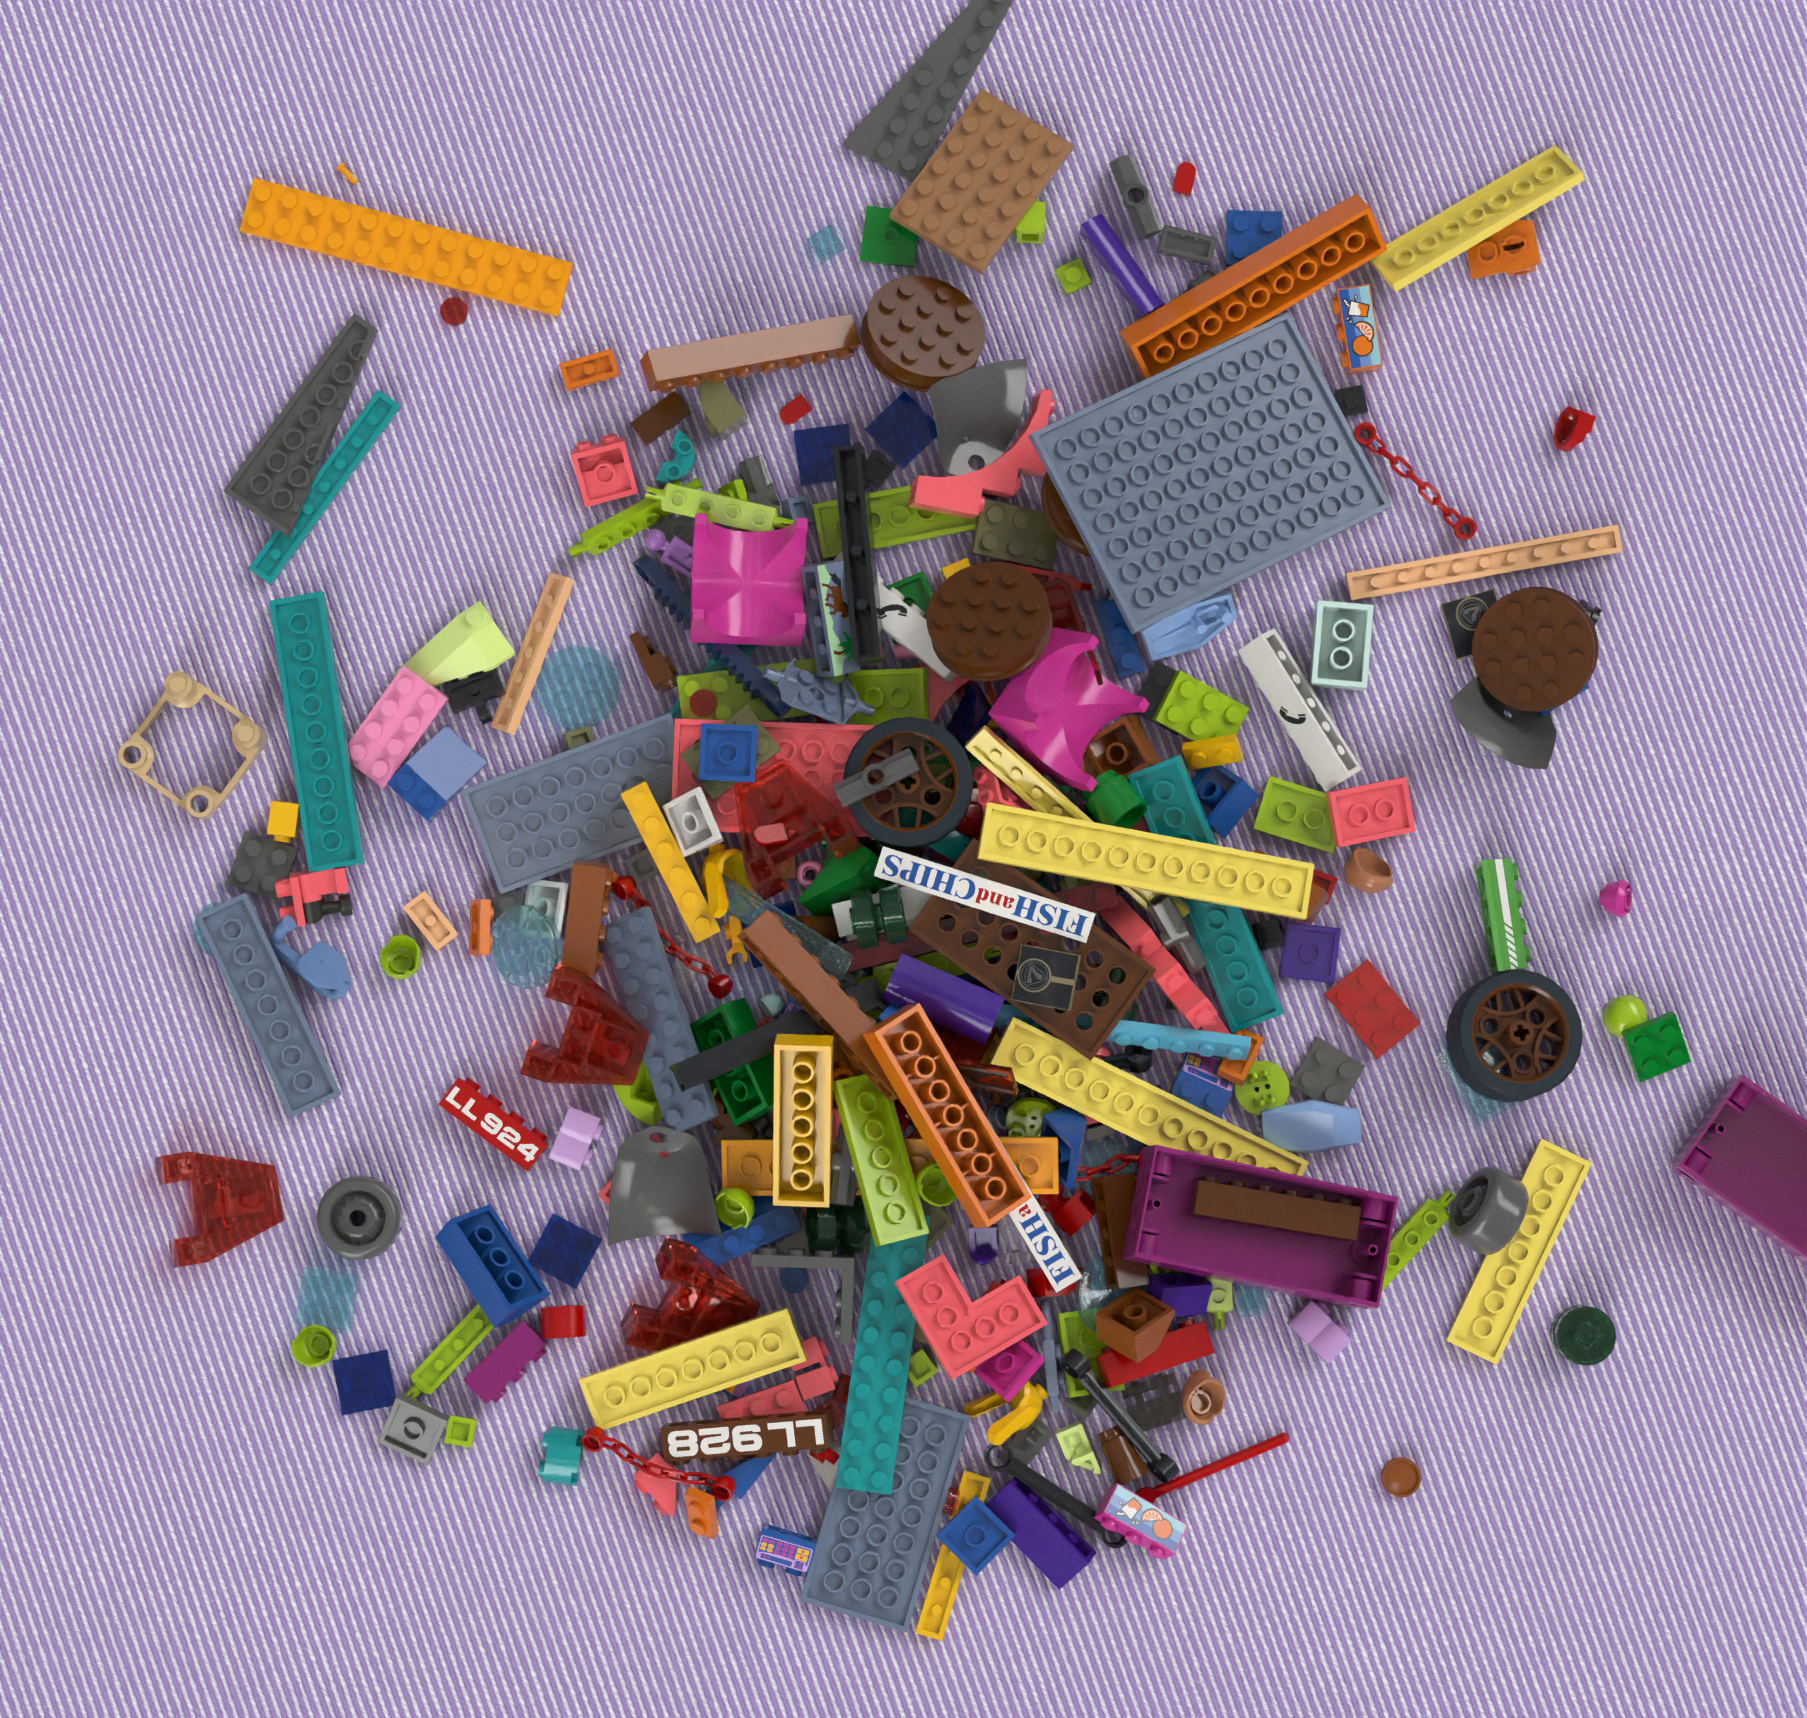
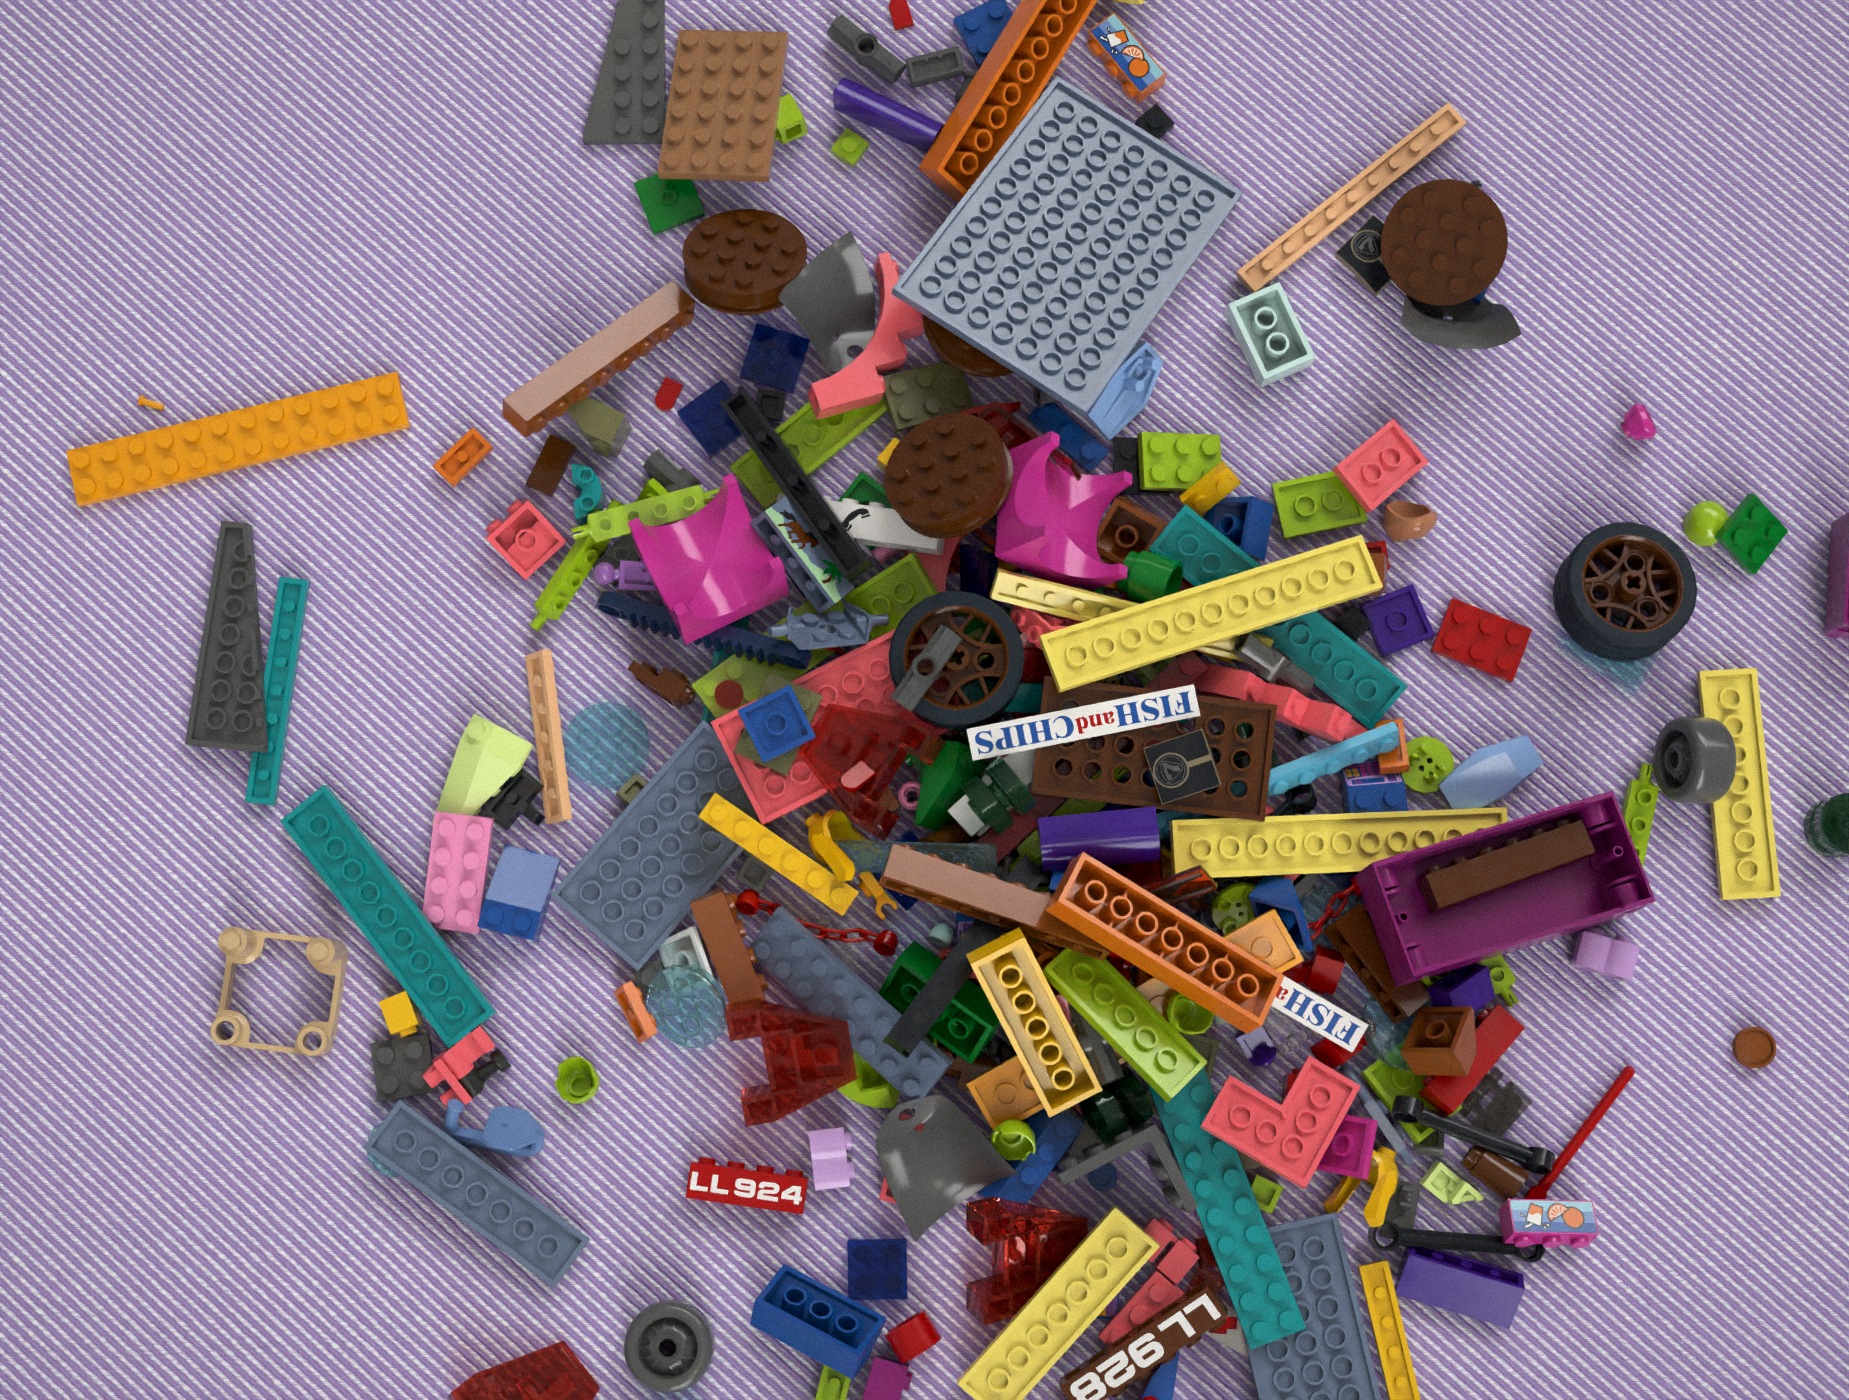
camera: 25 degrees left, 5 degrees down
(431, 921) = (587, 1031): light nougat plate -> none
(454, 311) = (312, 472): clear red tile -> none
(692, 822) = (779, 805): white slope -> none
(798, 508) = (713, 477): sand blue plate -> none
(826, 243) = (615, 235): clear light blue plate -> none
(951, 1501) = (1364, 1301): clear red tile -> none
(975, 1535) = (1405, 1321): blue plate -> none
(1202, 1397) = (1536, 1074): nougat hair -> none
(1250, 1302) = (1527, 964): clear light blue plate -> none
(1299, 710) = (1265, 411): white brick -> none
(1326, 1073) = (1474, 719): dark grey plate -> none
(1421, 485) = (1316, 171): red piece -> none
(1501, 915) = (1547, 493): bright green slope -> none
(1572, 428) = (1360, 41): red rock -> none

